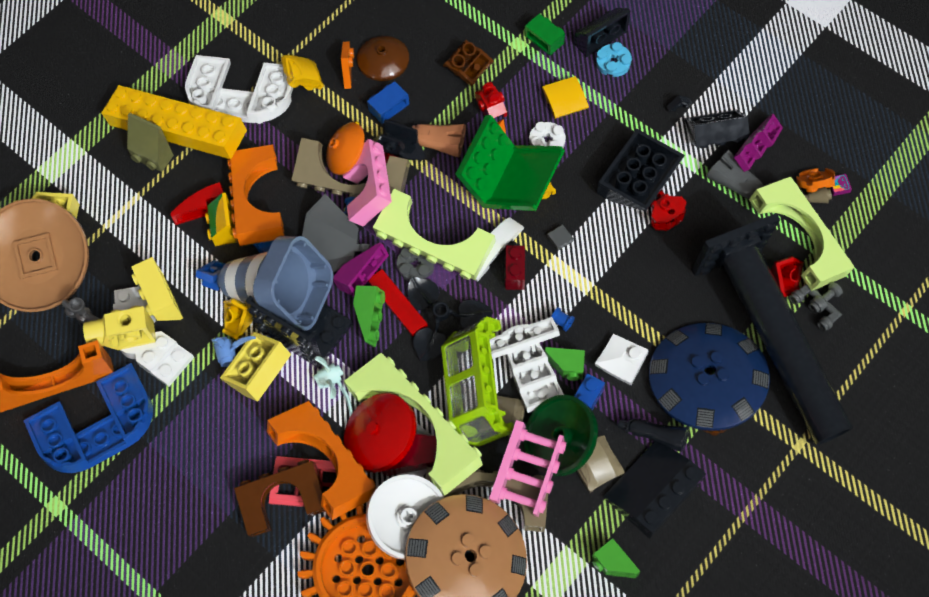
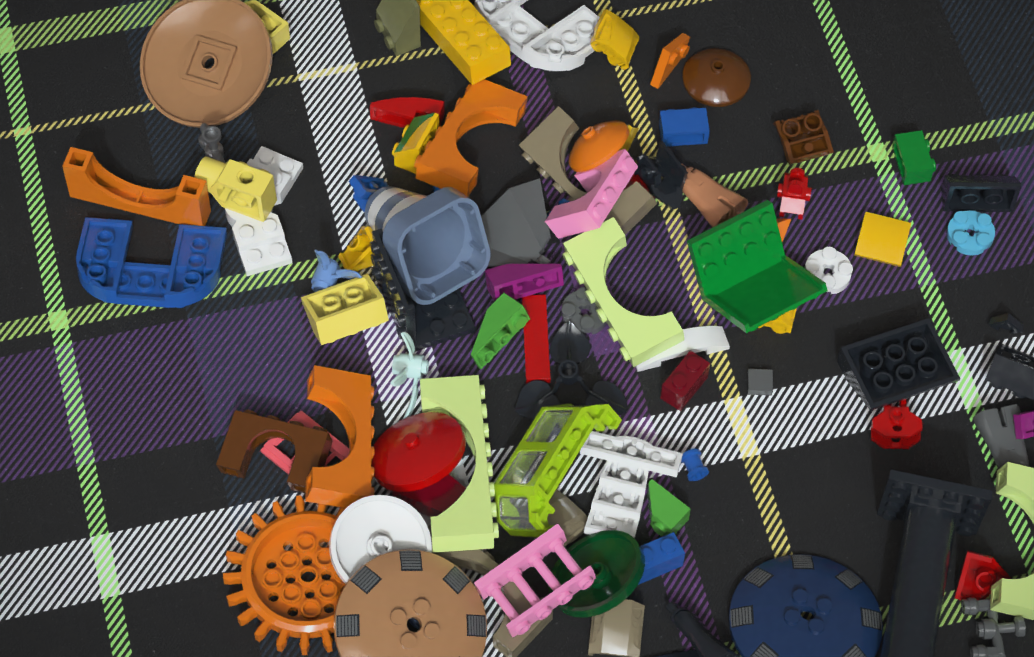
camera: 30 degrees right, 5 degrees down
(155, 291) = (300, 171): light yellow slope -> none
(622, 359) = (726, 546): white plate -> none

